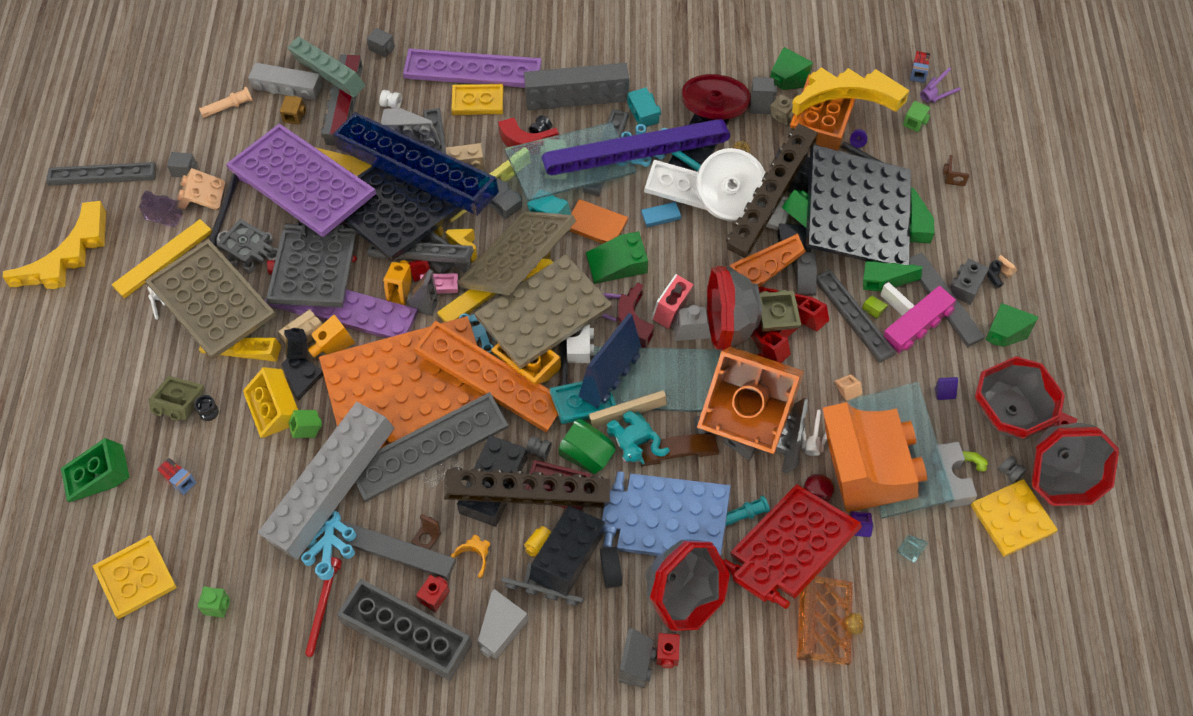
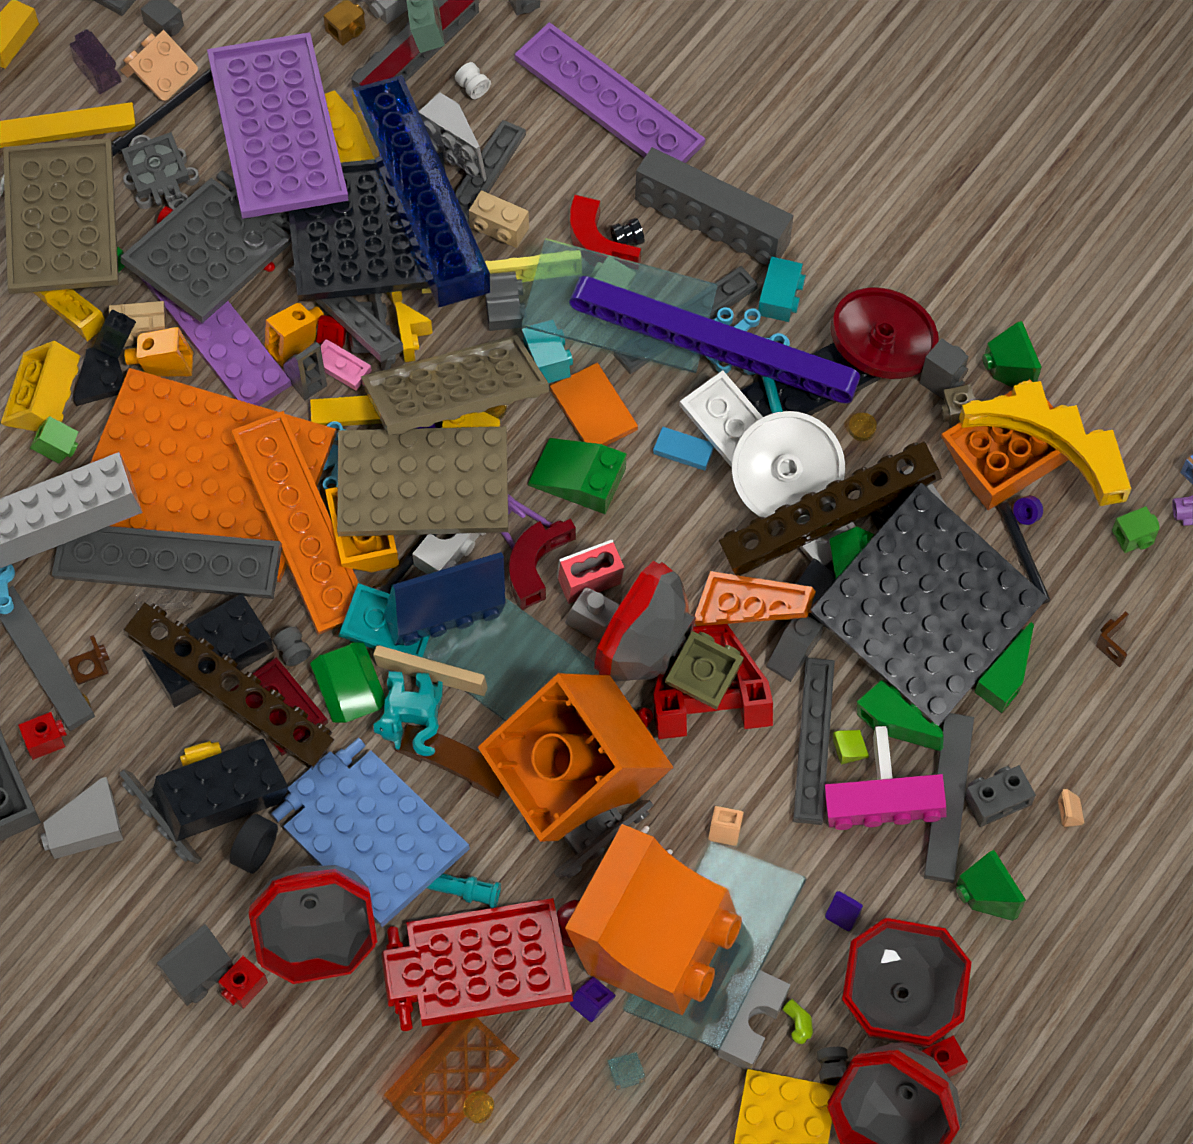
camera: 35 degrees right, 5 degrees up
(476, 546) = (134, 718): light orange helmet -> none
(477, 99) = (583, 146): yellow tile -> none
(994, 272) = (1043, 808): black arm -> none

